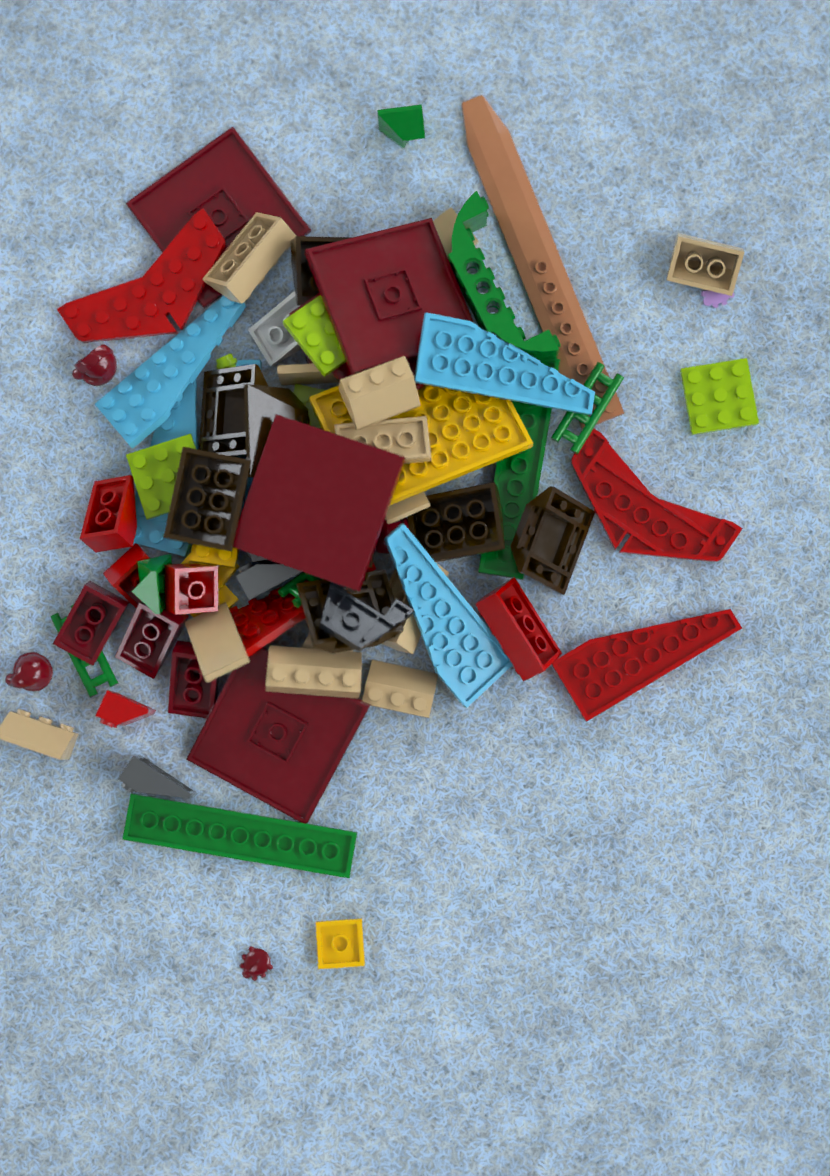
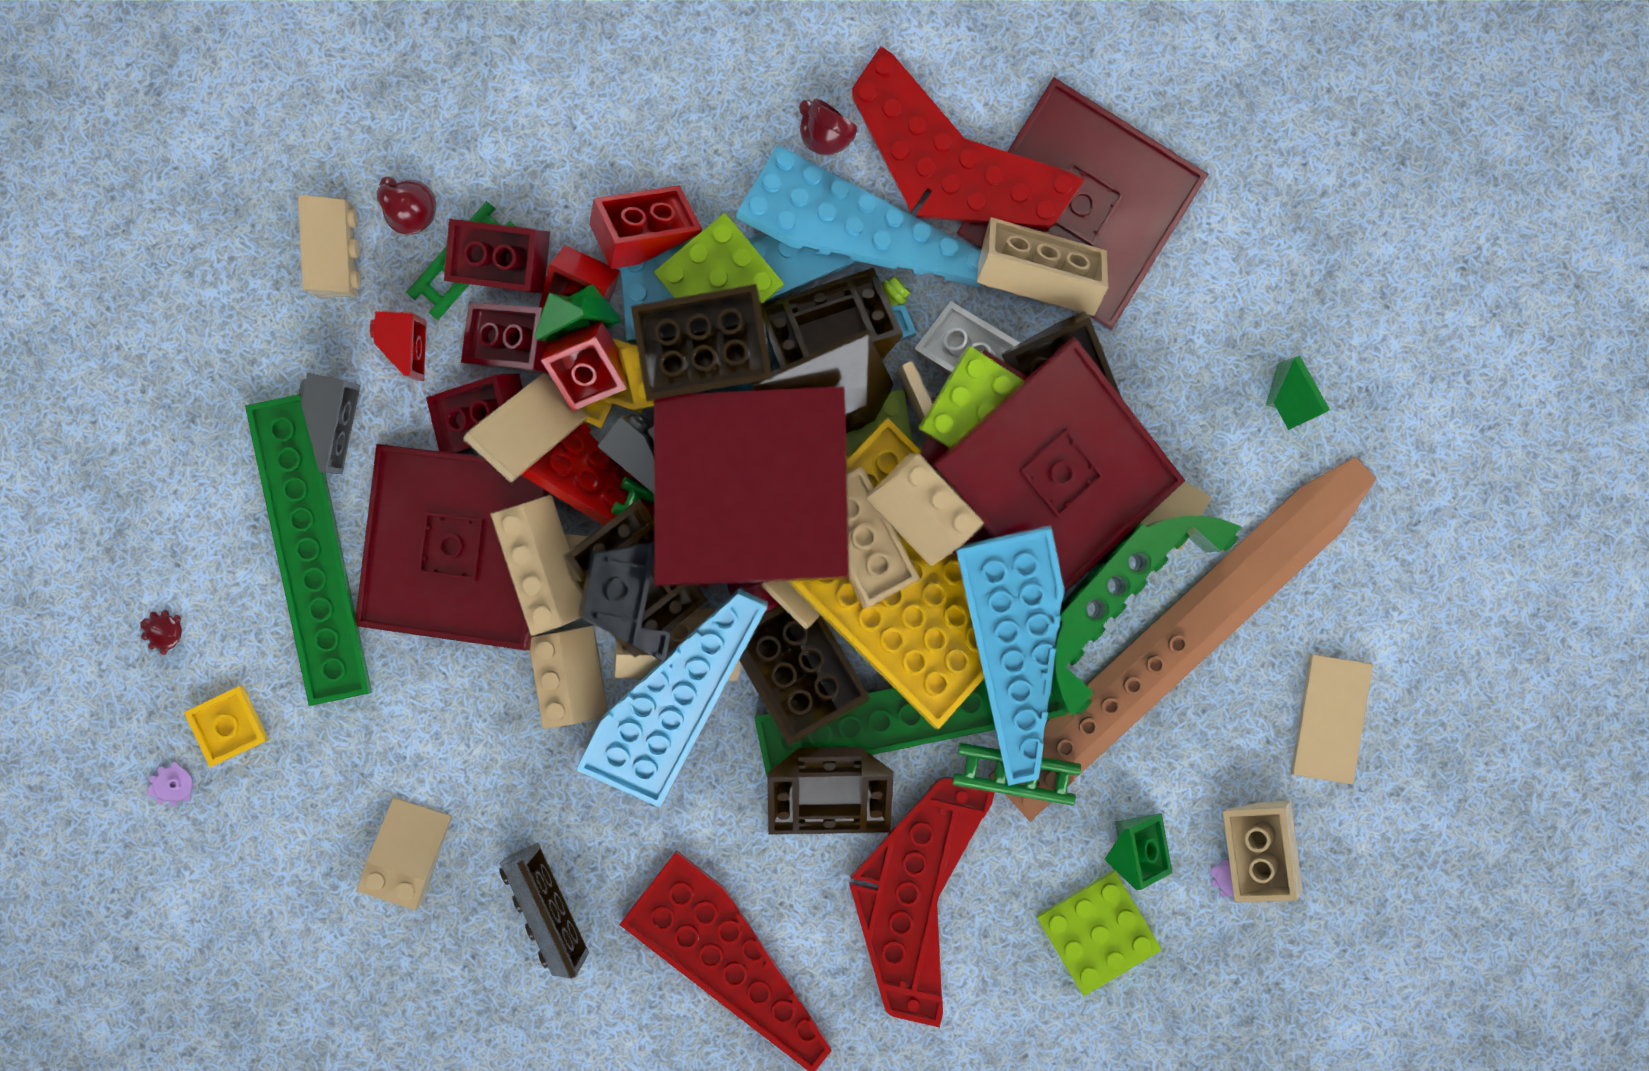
camera: 65 degrees right, 5 degrees up
(366, 1000) = (170, 785): none -> lavender piece
(478, 851) = (404, 854): none -> tan slope
(518, 629) = (699, 797): red slope -> none
(556, 769) = (545, 911): none -> dark brown slope
(633, 185) = (1331, 719): none -> tan tile
(672, 345) = (1141, 851): none -> green slope

